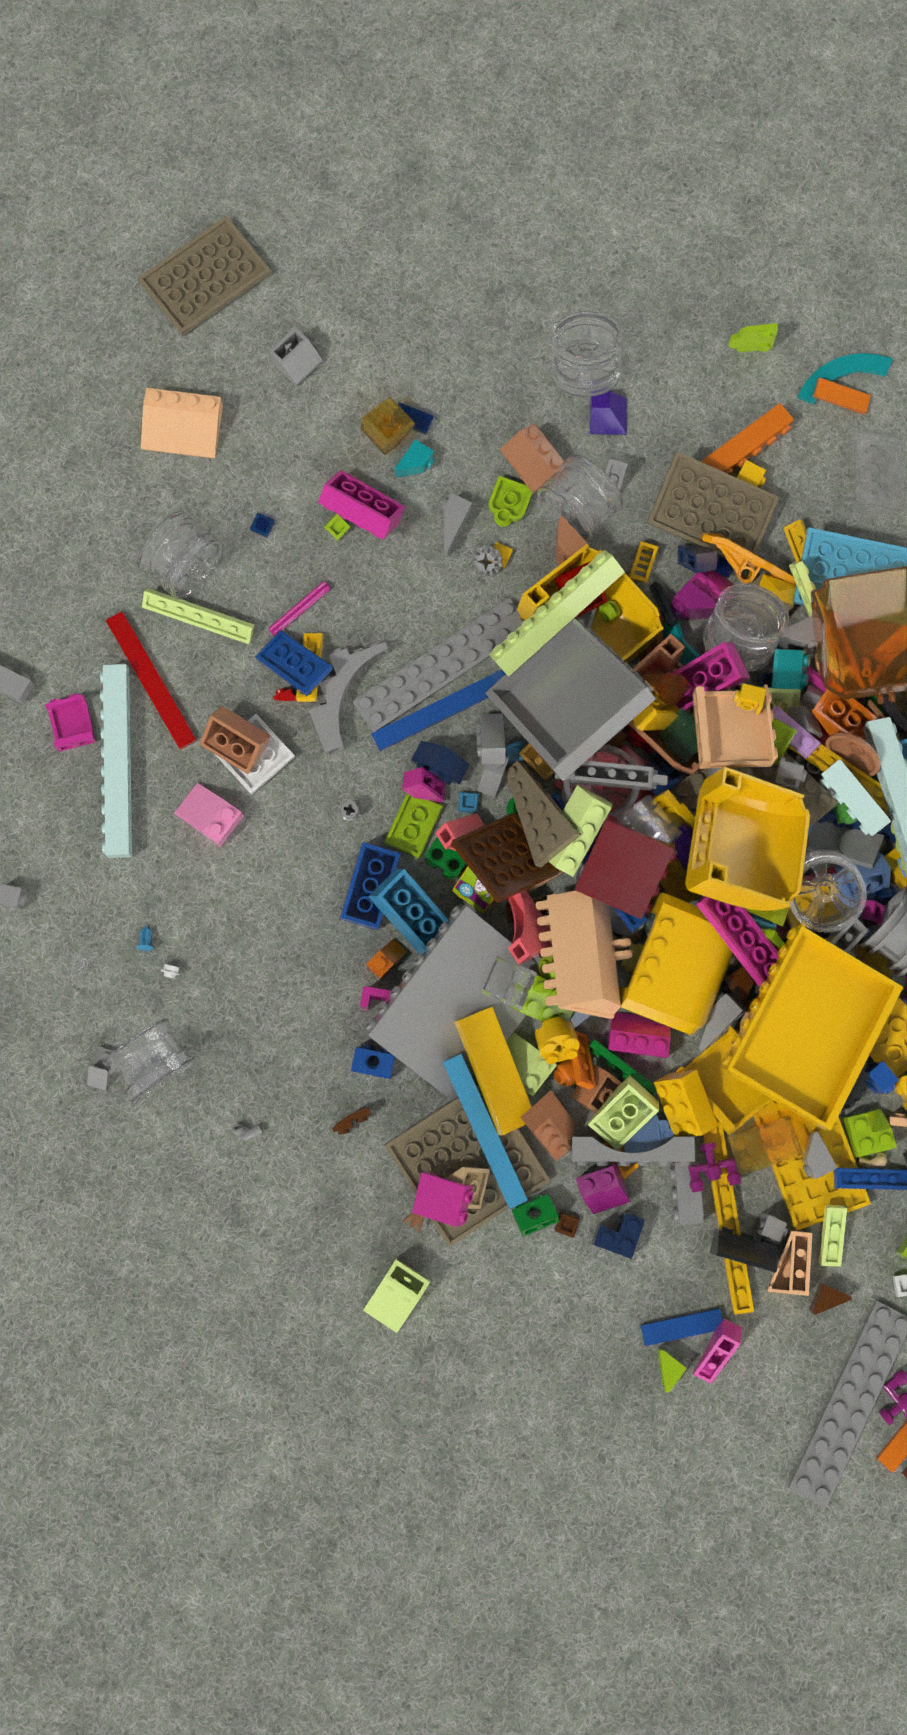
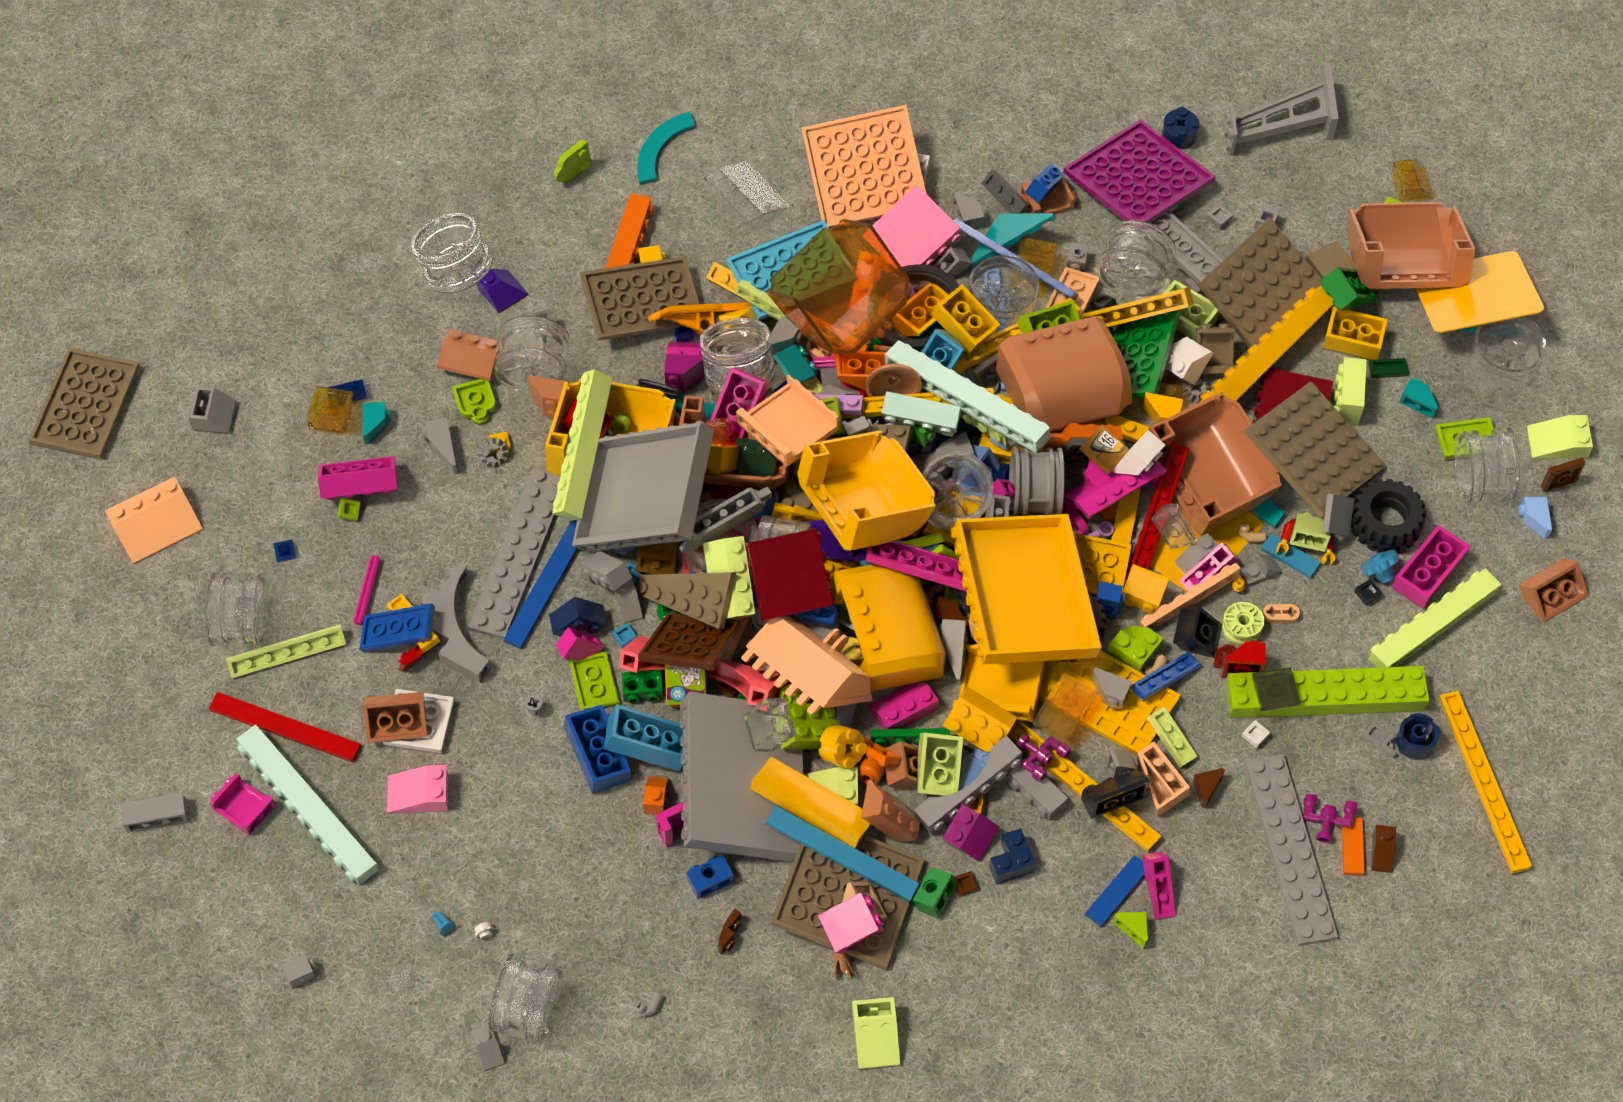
camera: 35 degrees left, 20 degrees down
(649, 547) = (615, 359): yellow slope -> none
(697, 558) = (658, 339): dark blue slope -> none
(750, 698) = (783, 391): yellow brick -> none
(841, 396) = (673, 160): orange tile -> none

